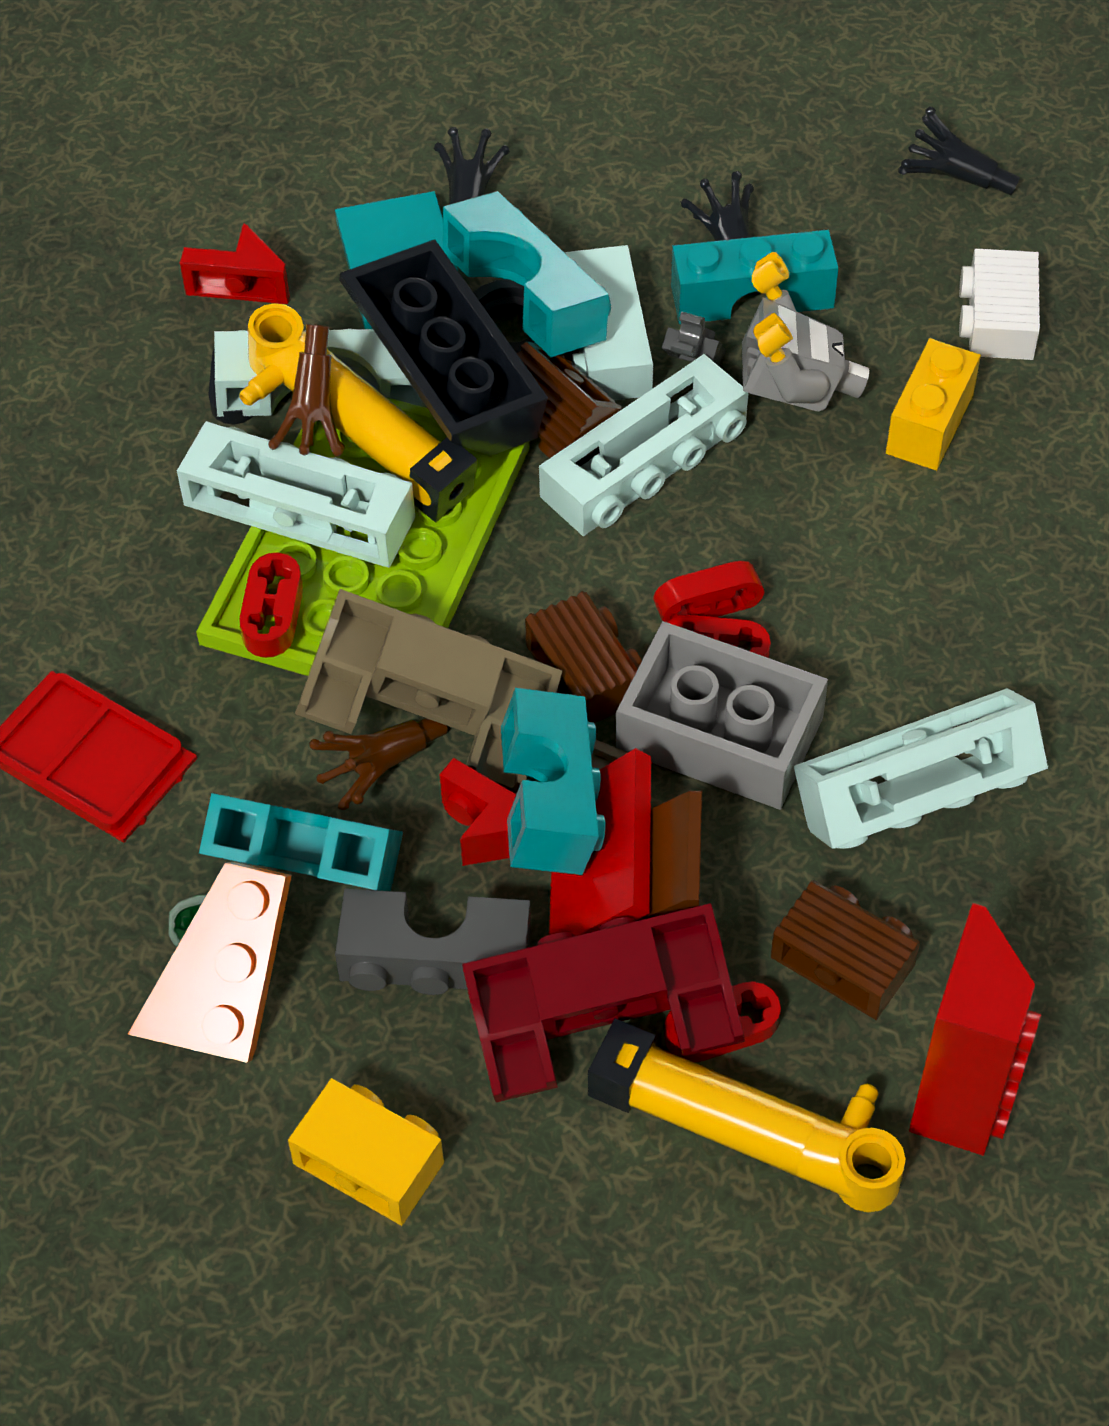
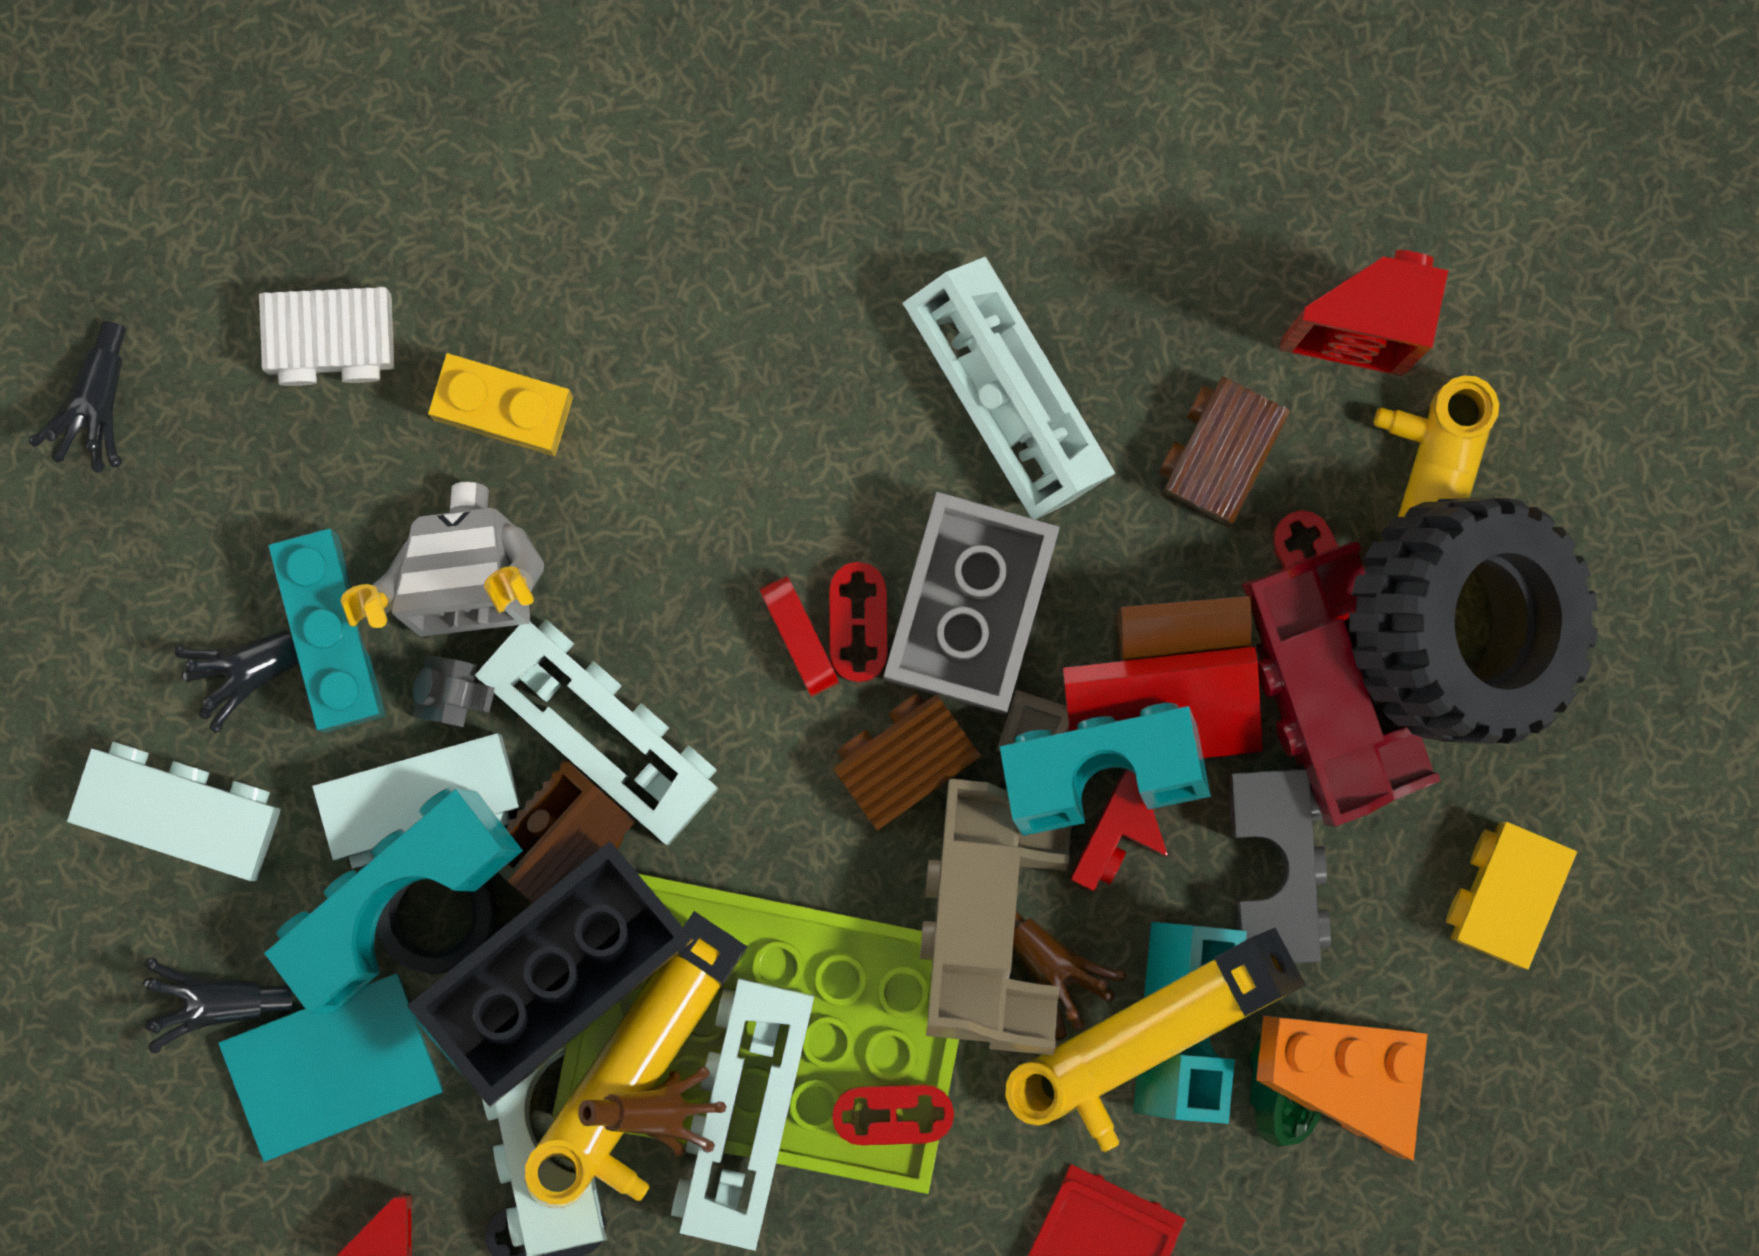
camera: 105 degrees left, 30 degrees up
(323, 824) = (1151, 1033): none -> yellow piece
(586, 1176) = (1537, 620): none -> black tyre
(619, 177) = (175, 811): none -> light aqua brick

